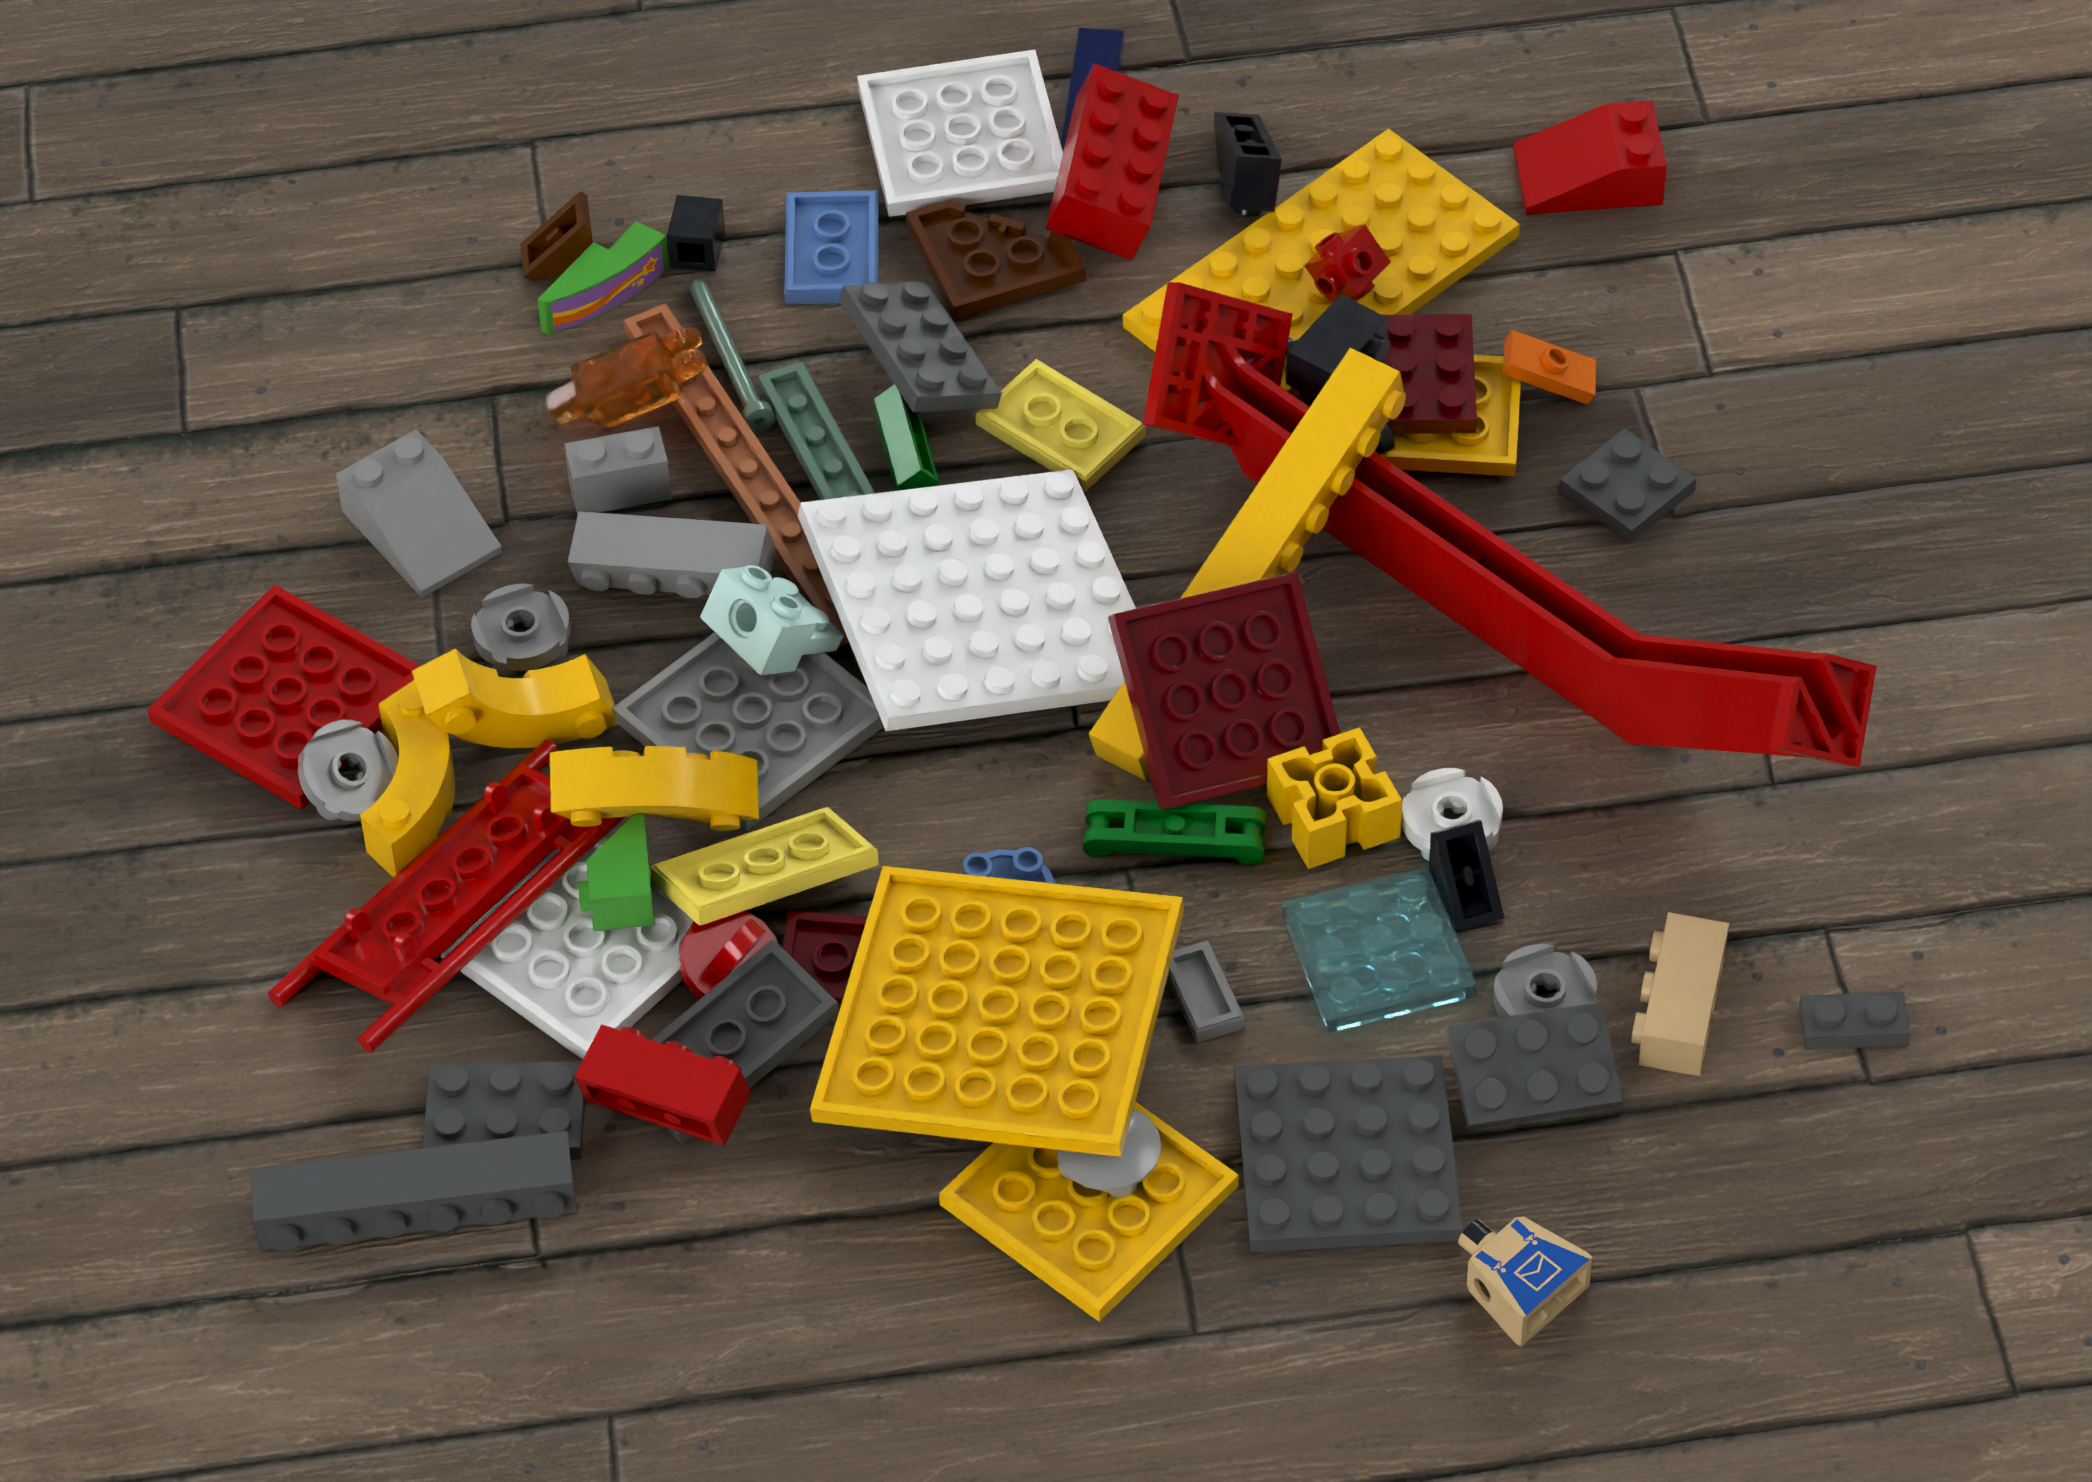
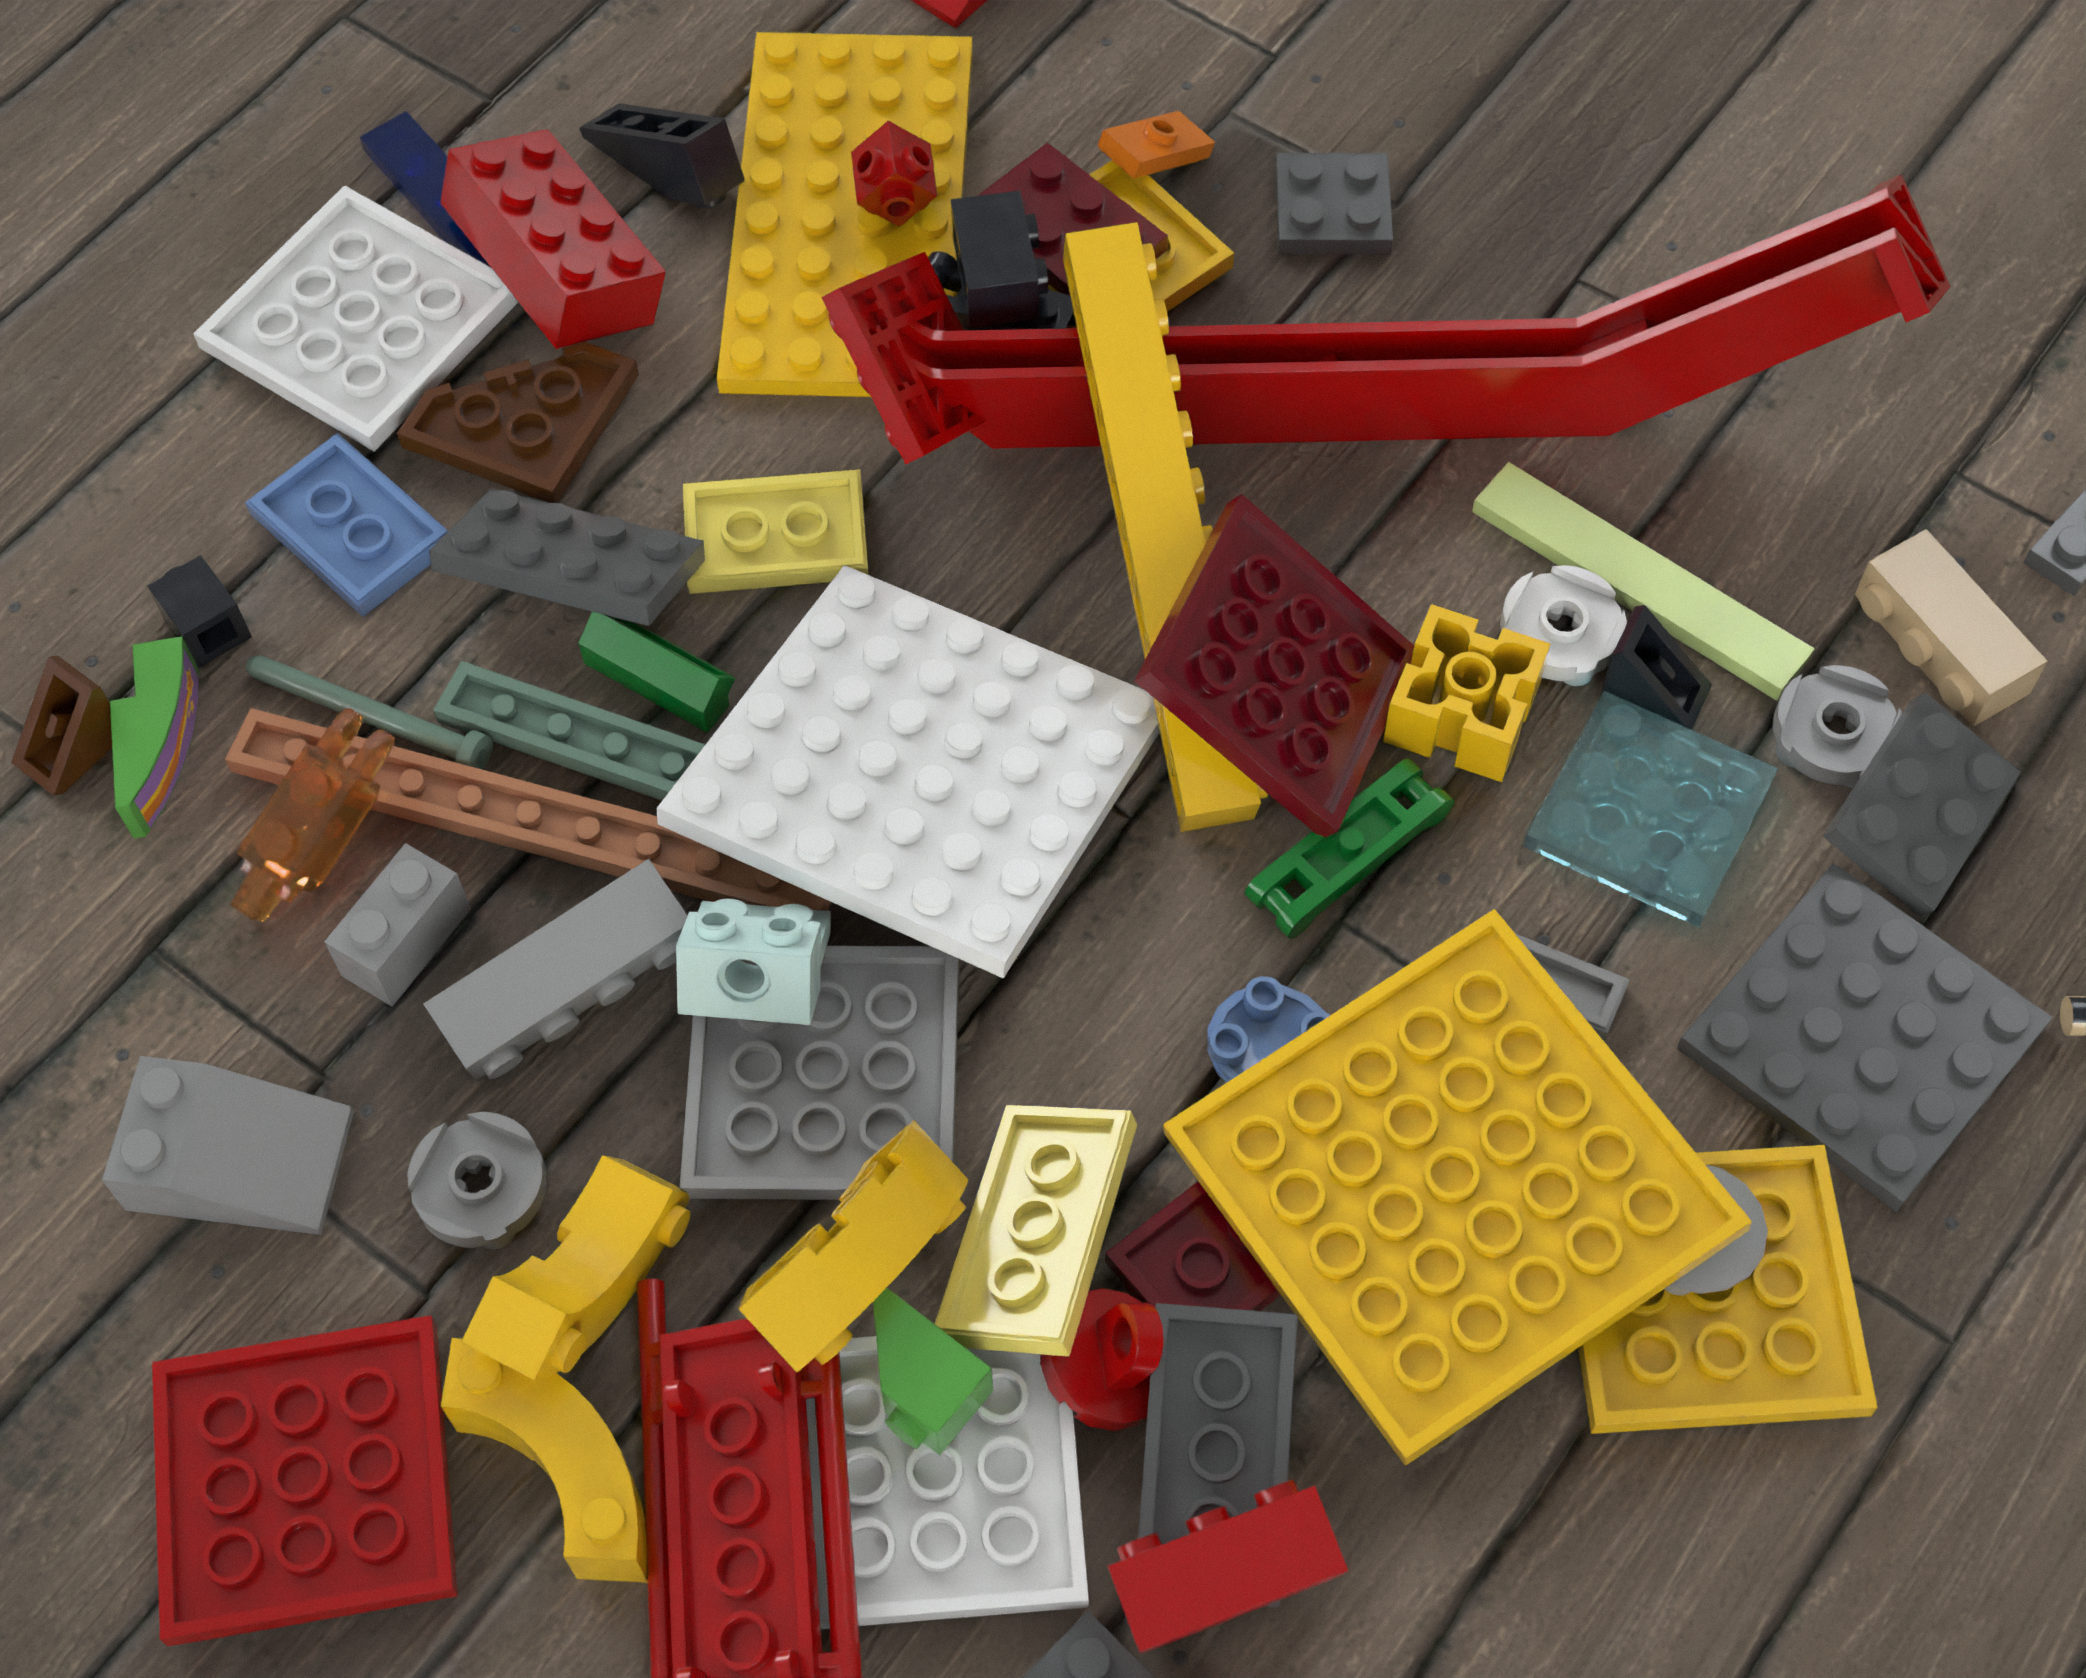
camera: 45 degrees left, 10 degrees up
(321, 759) = (441, 1526): light grey plate -> none
(1535, 829) = (1640, 576): none -> yellowish green tile

